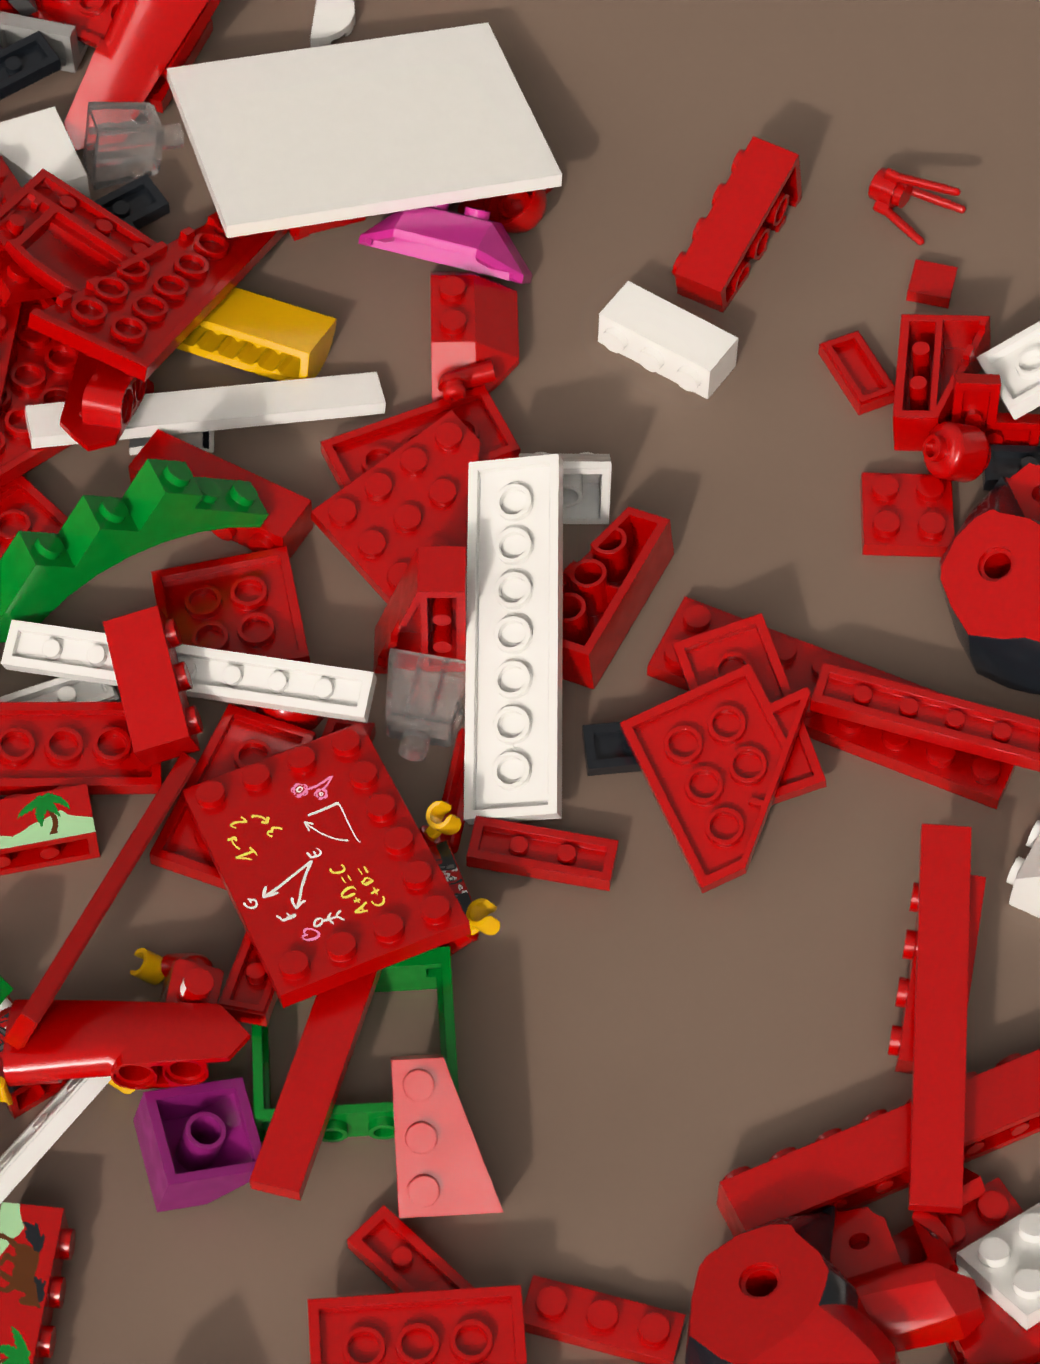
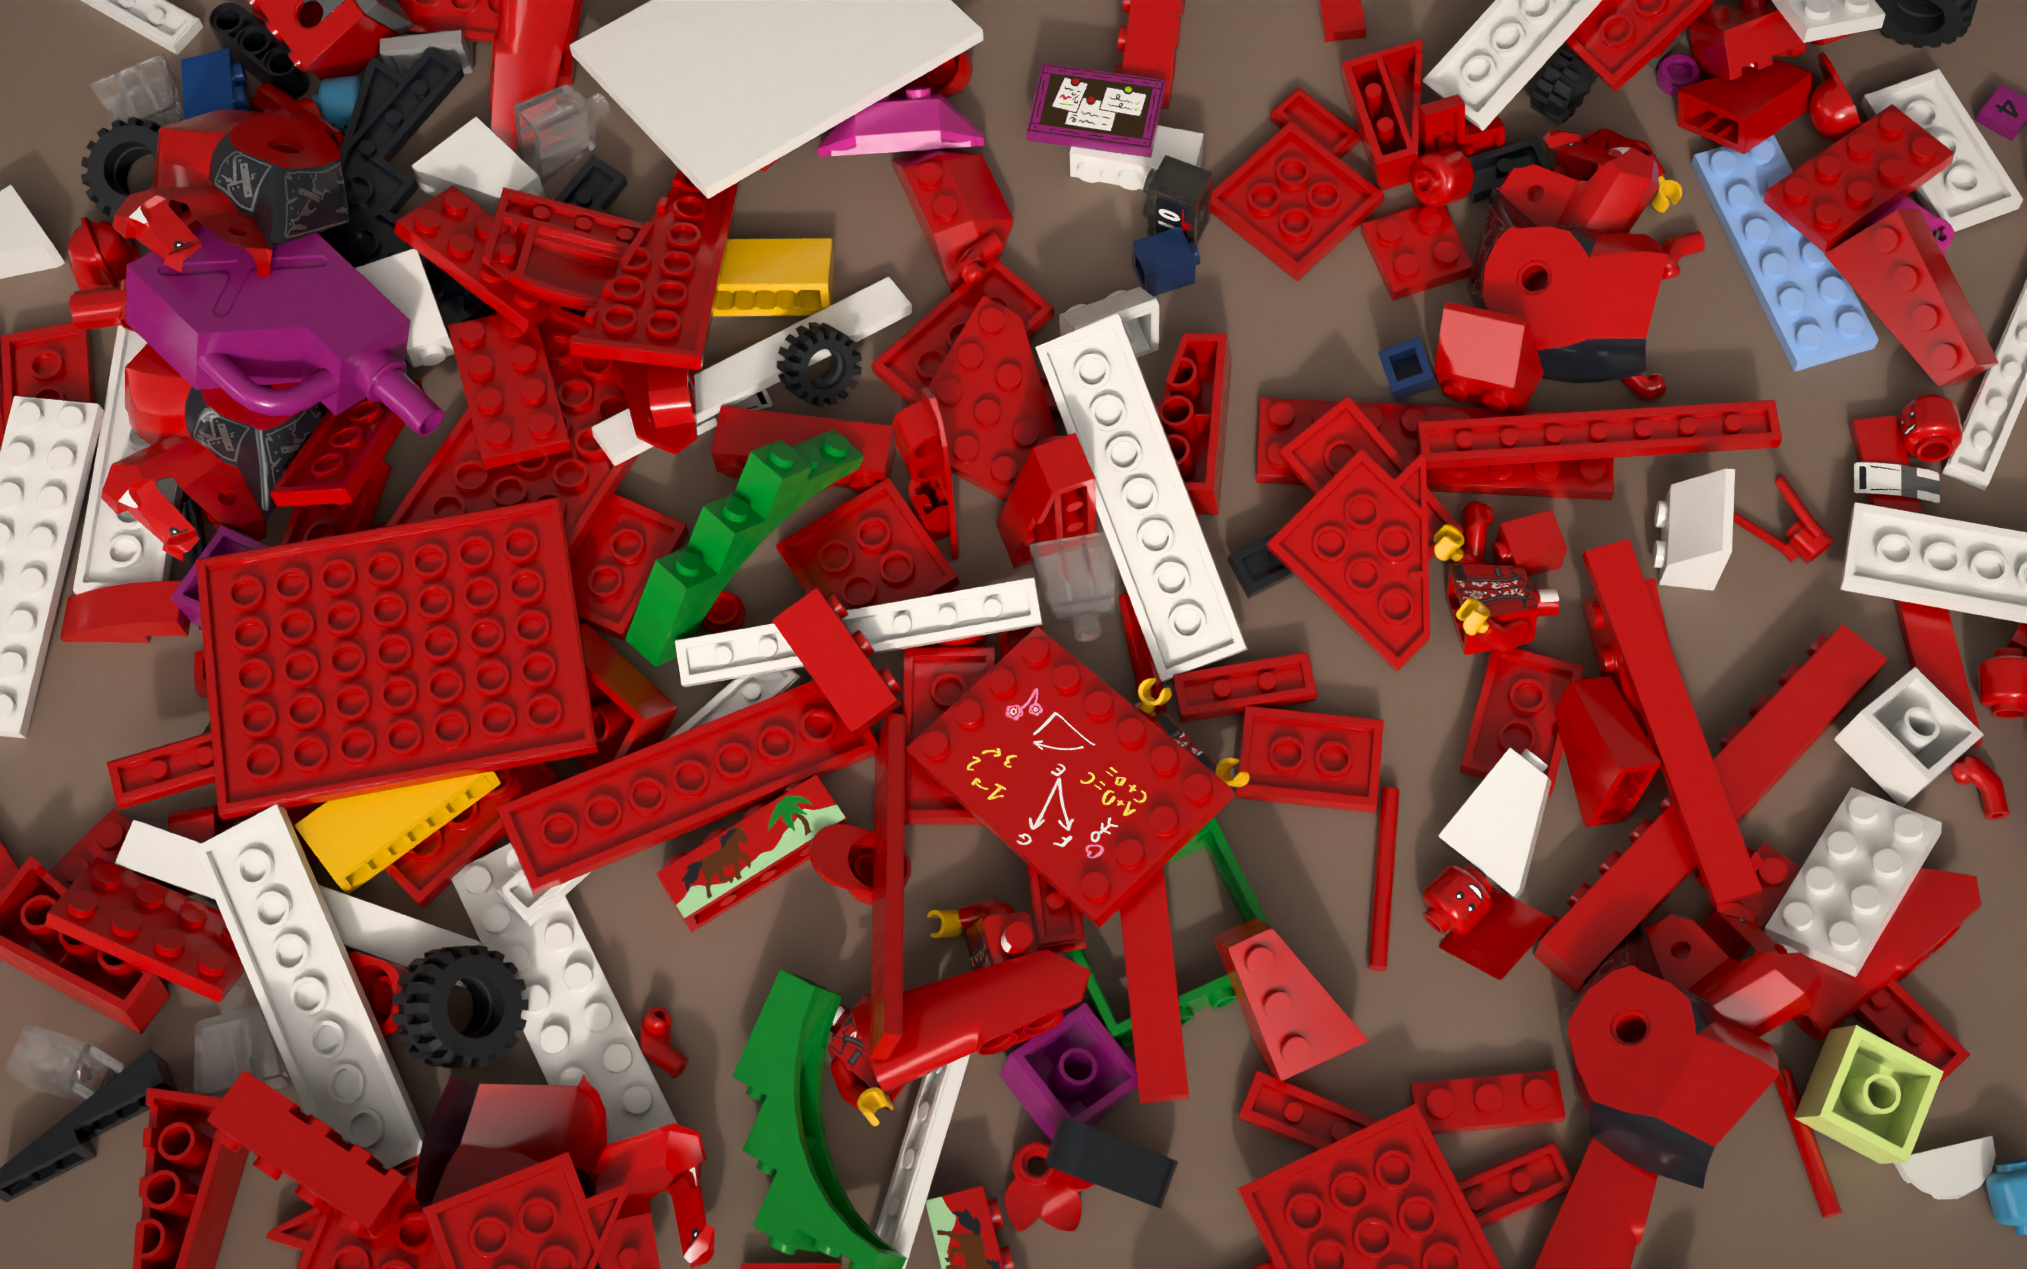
camera: 15 degrees left, 10 degrees up
(75, 613) = (725, 614): none -> red plate
(78, 866) = (845, 859): none -> red cap
(131, 1249) = (1046, 1195): none -> red plate
(195, 1230) = (1110, 1162): none -> black beam
(282, 445) = (839, 372): none -> black tyre
(317, 531) = (924, 449): none -> red panel
(576, 941) = (1311, 759): none -> red plate
(598, 1078) = (1384, 879): none -> red bar
(641, 282) = (1096, 110): none -> tile
(649, 443) = (1165, 261): none -> dark blue brick
(658, 1118) = (1457, 899): none -> red head
(683, 391) = (1178, 197): none -> clear smoke brick
(683, 1164) = (1500, 936): none -> red sticker
(737, 1059) = (1503, 820): none -> white slope
(803, 430) = (1294, 201): none -> red plate
(805, 977) = (1518, 711): none -> red plate
(819, 854) = (1490, 602): none -> torso
(840, 614) = (1407, 368): none -> dark blue brick
(845, 777) = (1475, 520): none -> red arm
(867, 1029) = (1604, 750): none -> red slope
(887, 819) = (1530, 543): none -> red brick
(920, 628) = (1487, 358): none -> slope

